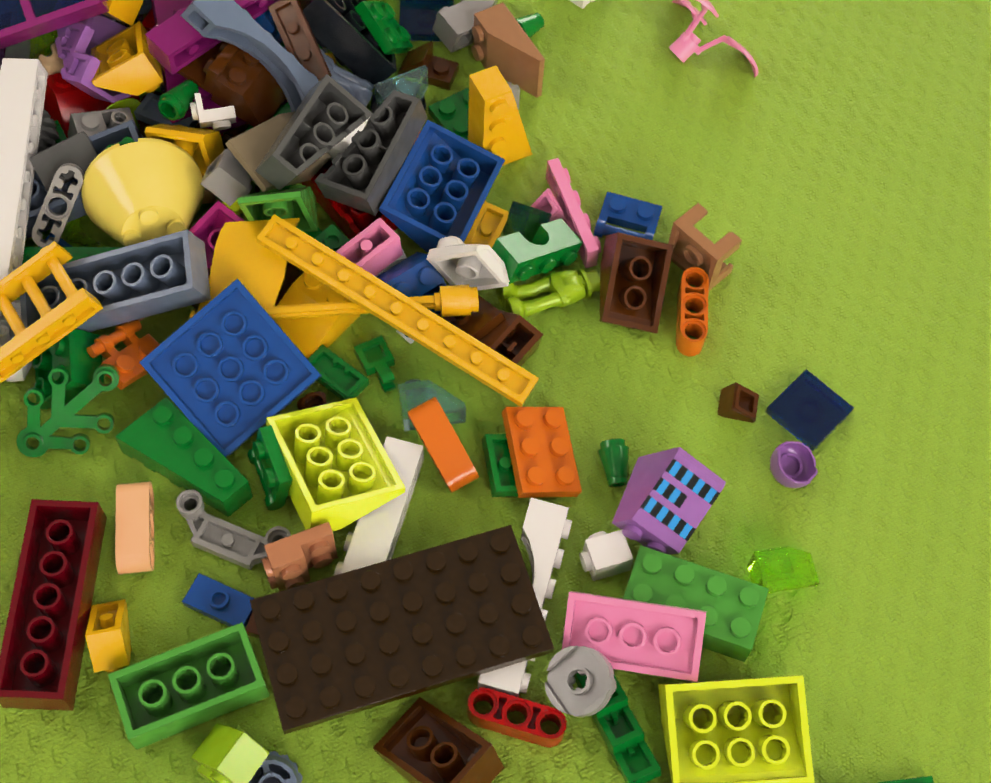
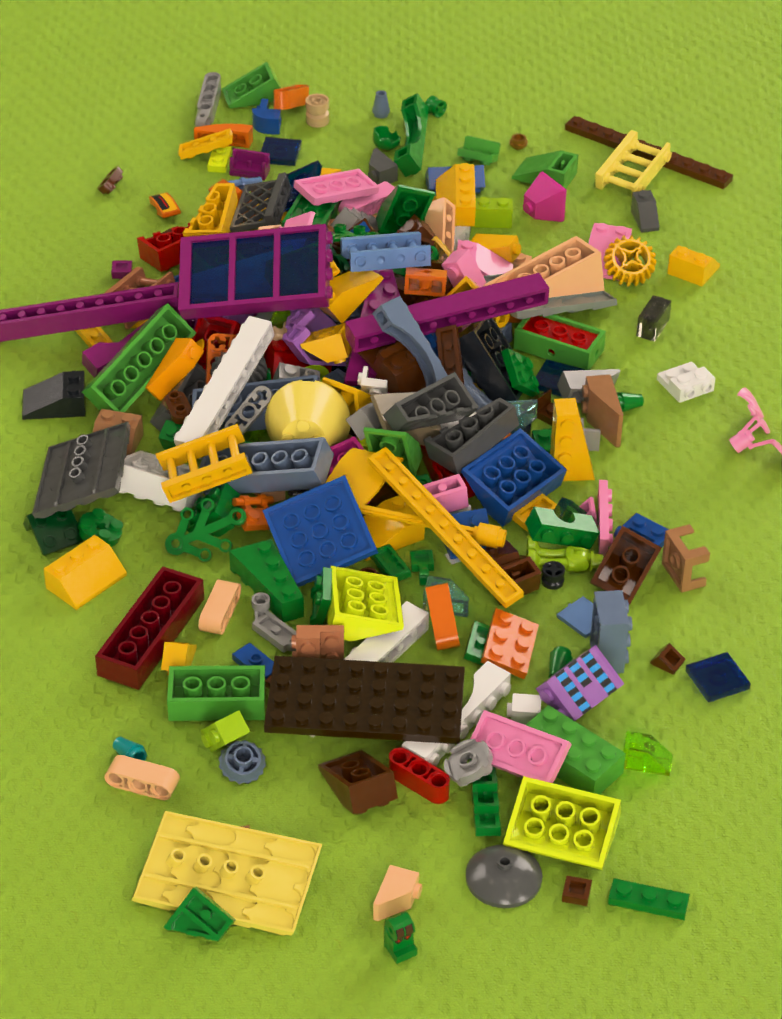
camera: 25 degrees right, 20 degrees down
(74, 150) = (272, 380): dark grey slope -> none
(177, 100) = (351, 369): green cone -> none
(468, 264) = (511, 517): white slope -> none
(550, 315) = (553, 575): none -> black wheel
(610, 371) = (578, 616): none -> medium blue piece
(669, 400) = (611, 627): none -> sand blue brick
(692, 299) = (660, 596): orange beam -> none
(793, 464) = (685, 699): medium lavender hair -> none

